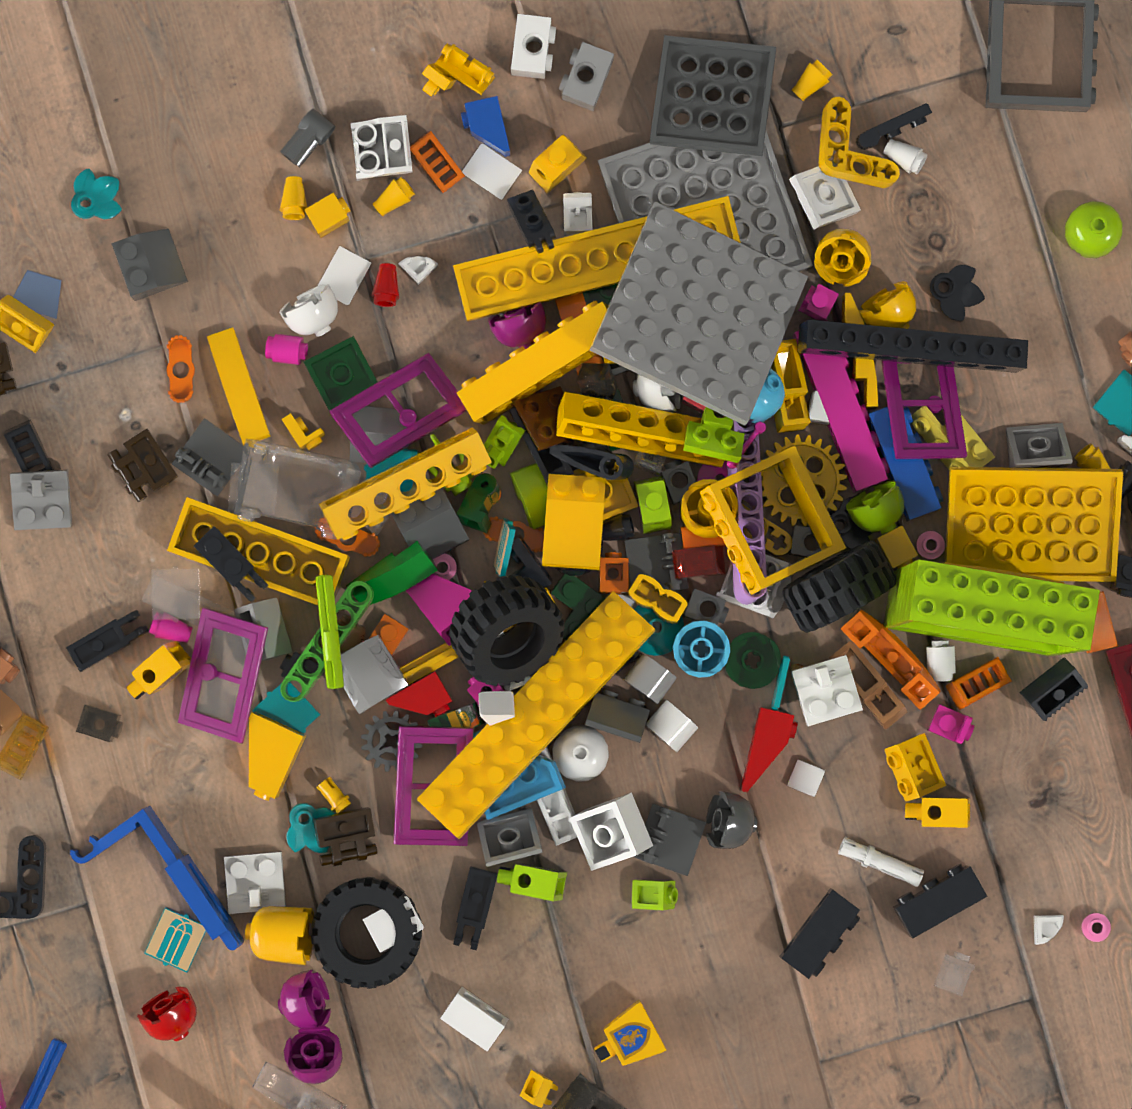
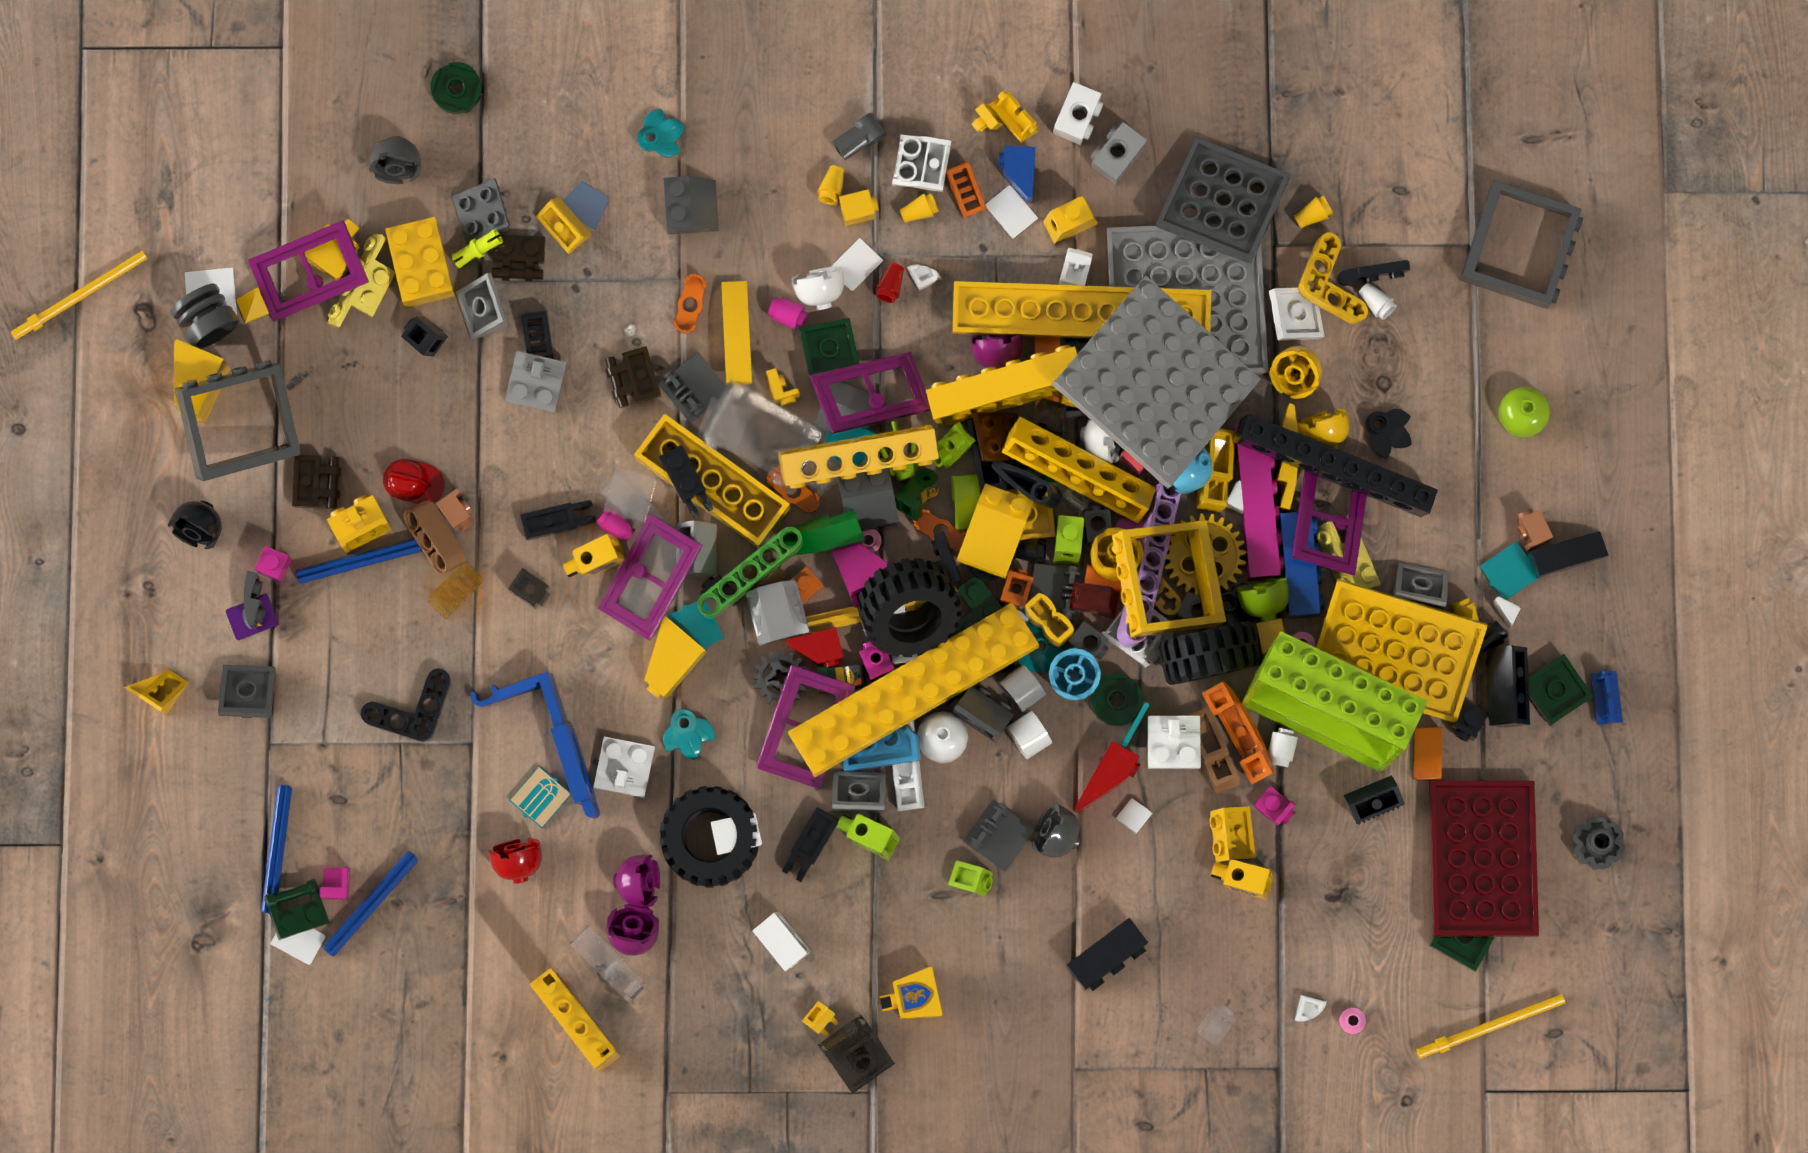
camera: 15 degrees right, 5 degrees down
(281, 934) = (635, 816): yellow cylinder -> none
(329, 631) = (755, 563): lime axle -> none
(334, 795) = (715, 711): yellow pin -> none
(344, 828) = (718, 741): dark brown plate -> none
(496, 706) = (881, 671): white slope -> none
(504, 547) = (928, 536): teal piece -> none
(532, 220) = (1034, 262): black hinge -> none
(611, 831) = (949, 810): white brick -> none
(714, 438) = (1138, 493): lime plate -> none
(759, 428) = (1180, 498): dark pink hinge -> none
(818, 302) = (1264, 404): dark pink brick -> none
(870, 857) = (1179, 908): white pin -> none
(939, 900) = (1220, 956): black brick -> none
(958, 694) = (1289, 782): orange slope -> none

